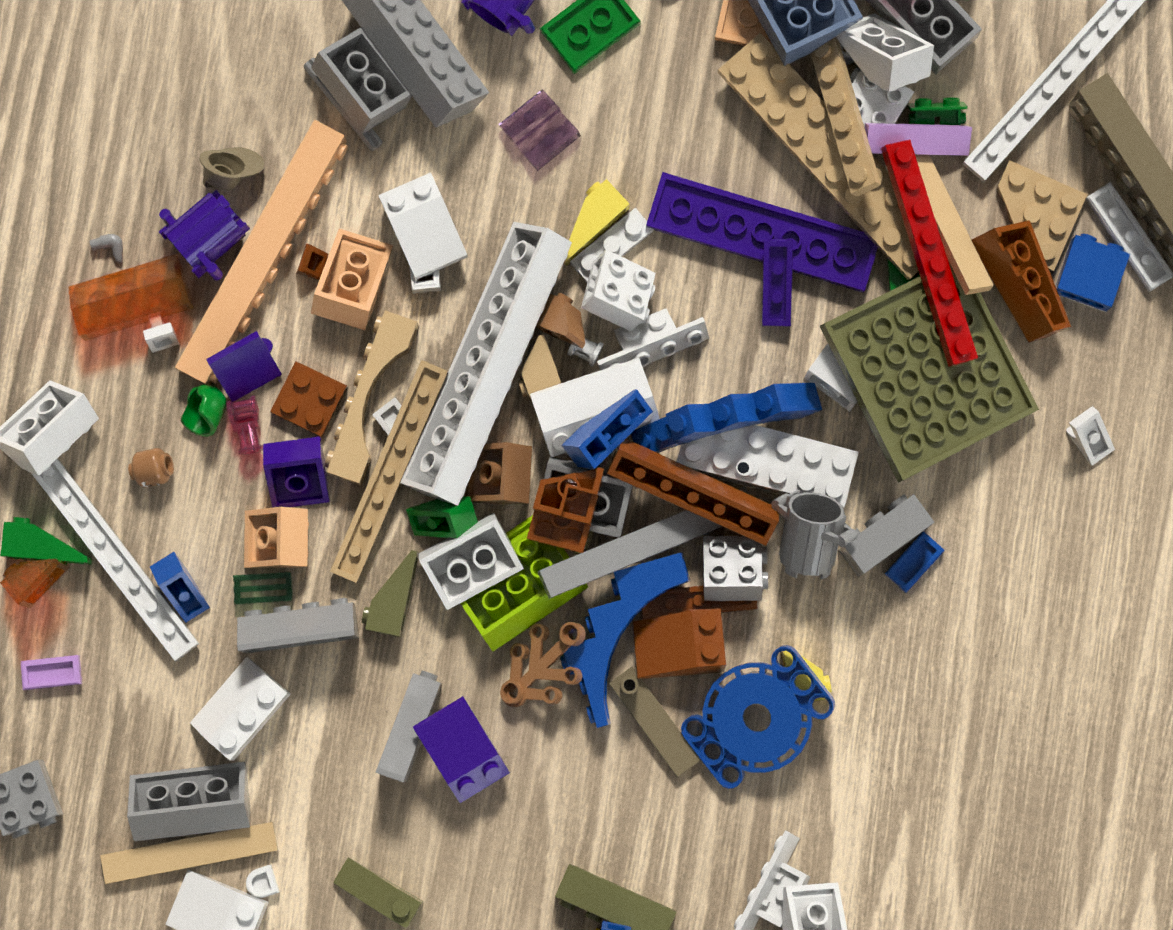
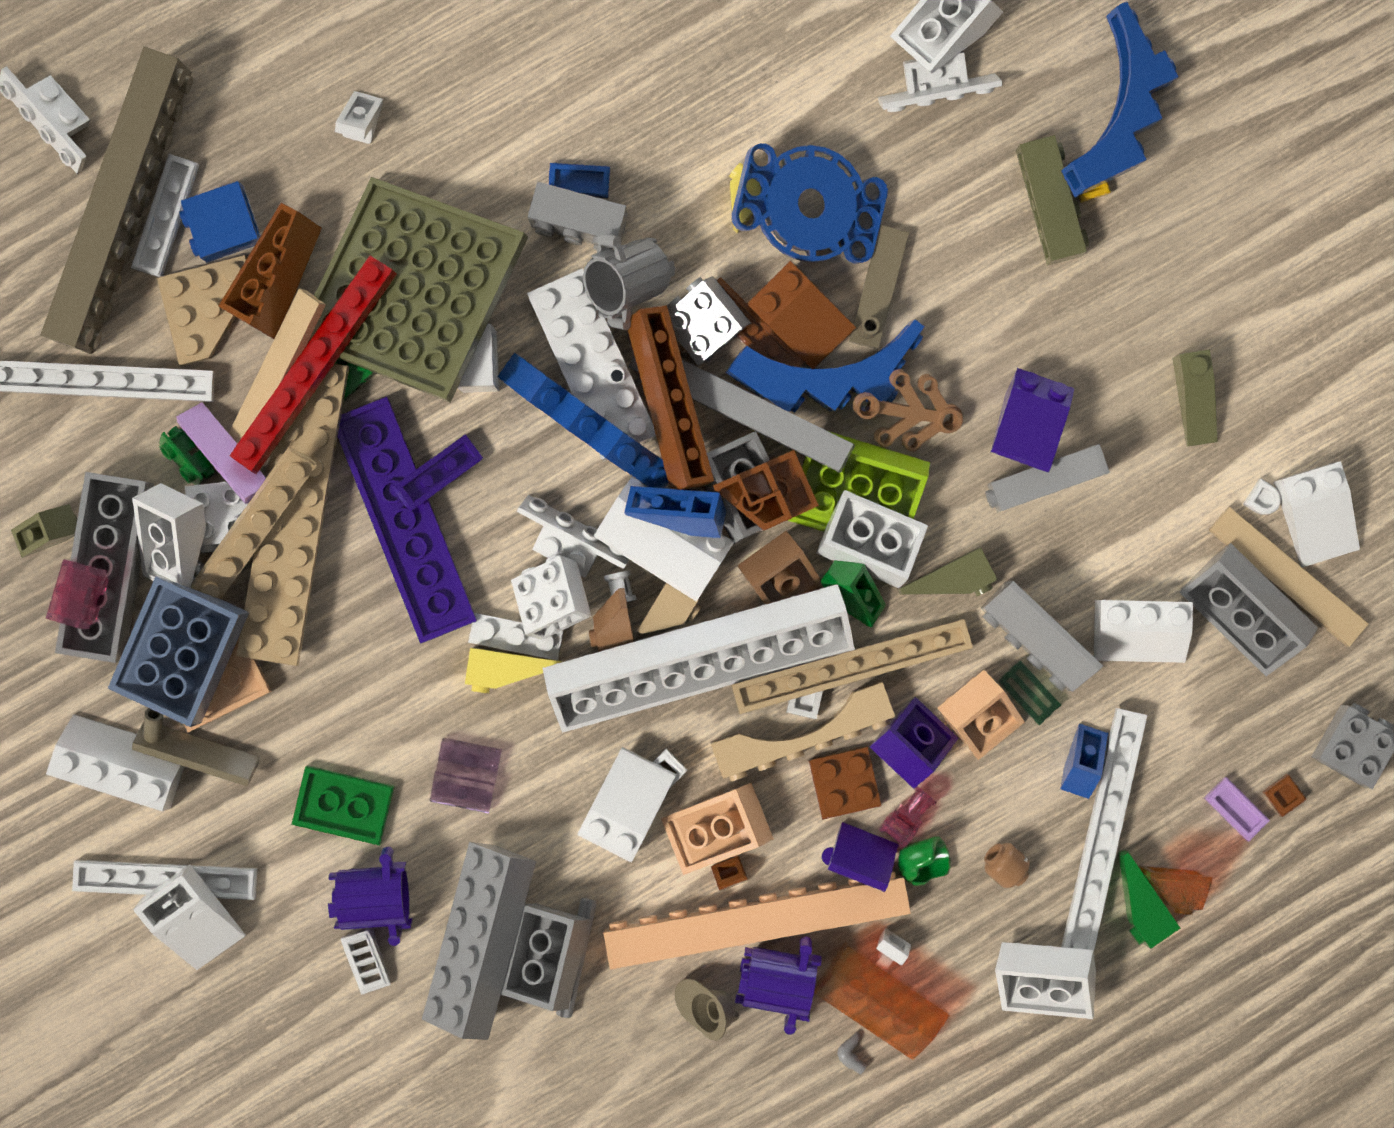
camera: 130 degrees left, 5 degrees up
(31, 716) = (1284, 795): none -> dark orange tile

